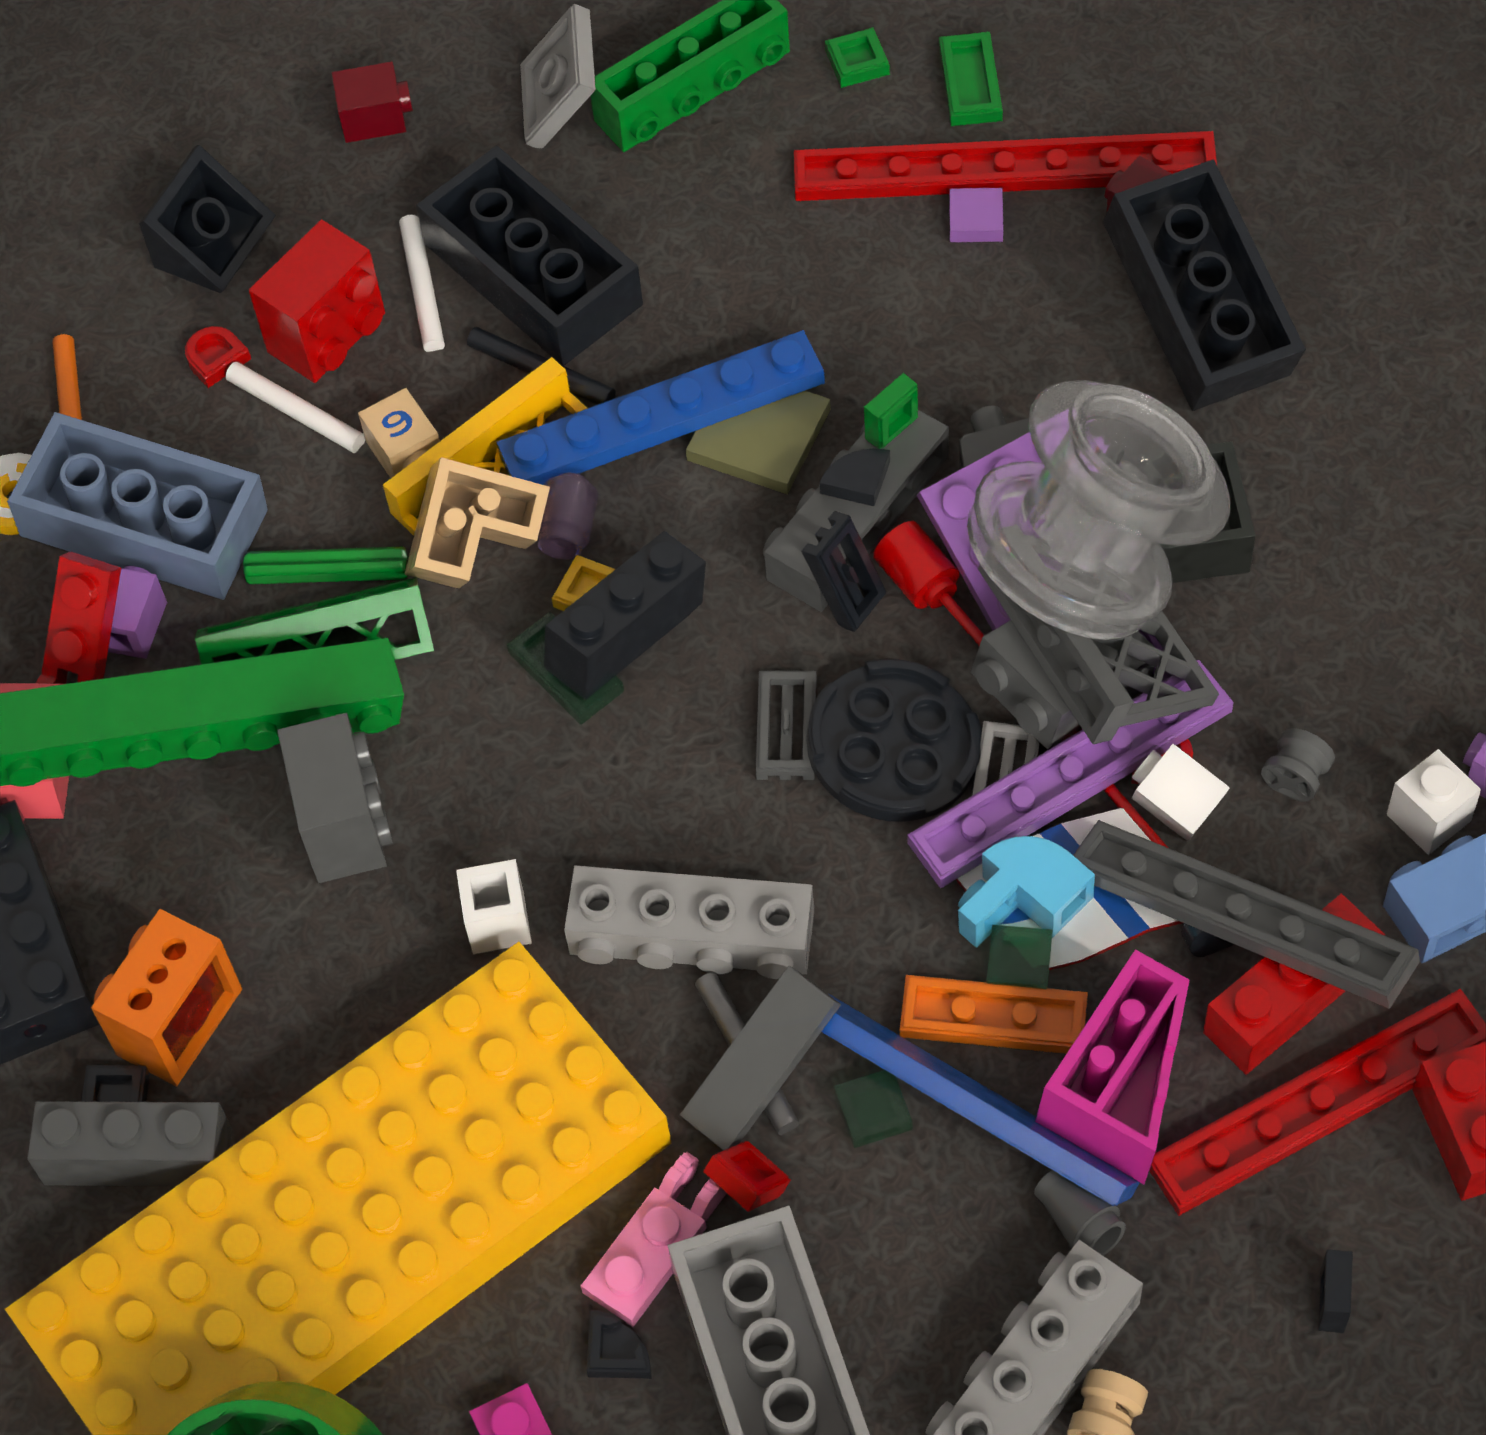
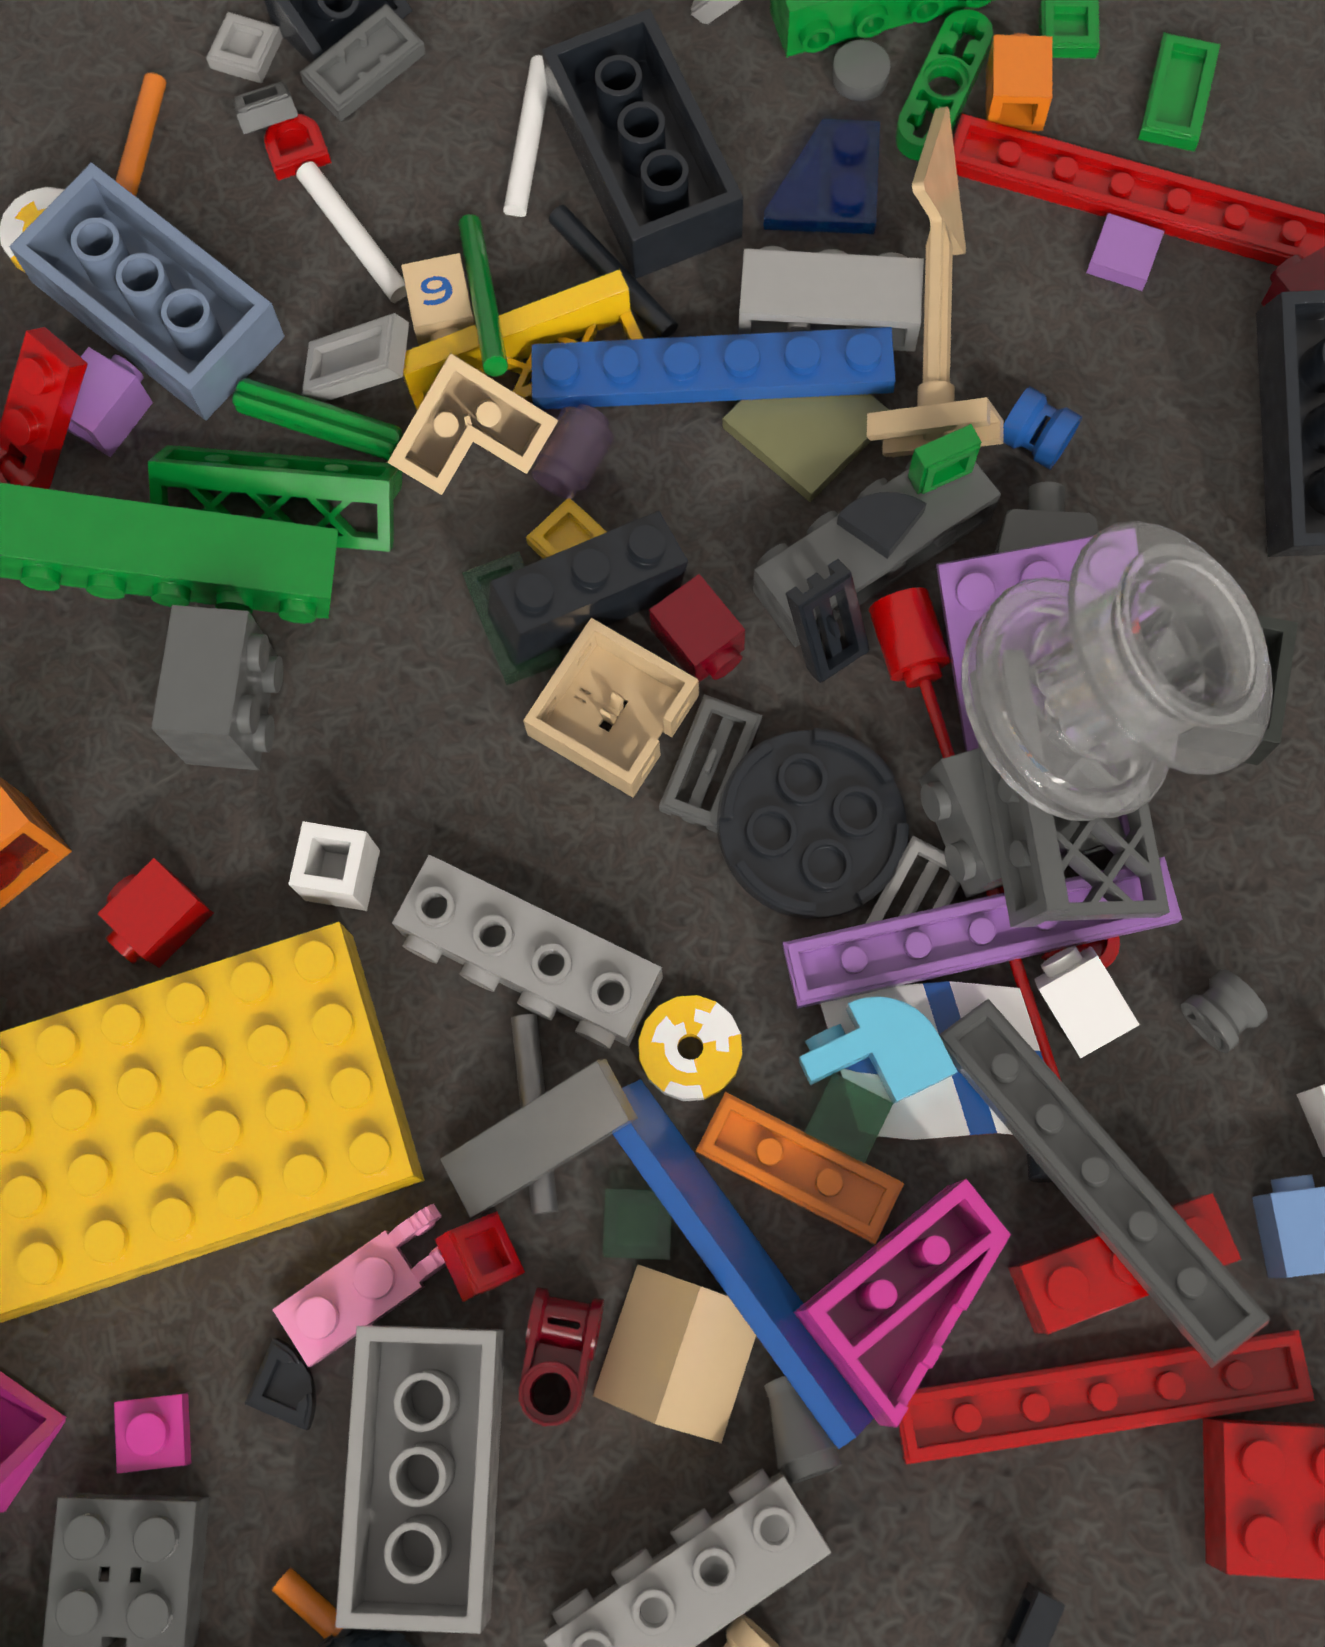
camera: 20 degrees right, 15 degrees up
(135, 289) = (244, 47): none -> light grey tile
(176, 330) = (264, 107): none -> tile
(245, 263) = (363, 62): none -> dark grey plate
(318, 301) = (407, 123): red brick -> none
(344, 1004) = (152, 914): none -> red brick
(345, 501) = (356, 358): none -> light grey tile
(440, 414) = (483, 296): none -> green bar
(661, 693) = (592, 687): none -> tan piece
(692, 143) = (861, 70): none -> dark grey tile
(703, 238) = (831, 182): none -> clear blue wing
(734, 620) = (698, 630): none -> dark red brick
(739, 319) = (831, 292): none -> light grey brick
(762, 116) = (943, 63): none -> green beam
(832, 109) = (1019, 81): none -> orange brick
(845, 404) = (936, 412): none -> tan piece
(848, 1224) = (559, 1351): none -> dark red piece
(861, 978) = (686, 1018): none -> yellow piece
(948, 366) = (1029, 418): none -> blue wheel
(949, 1193) = (676, 1355): none -> tan slope

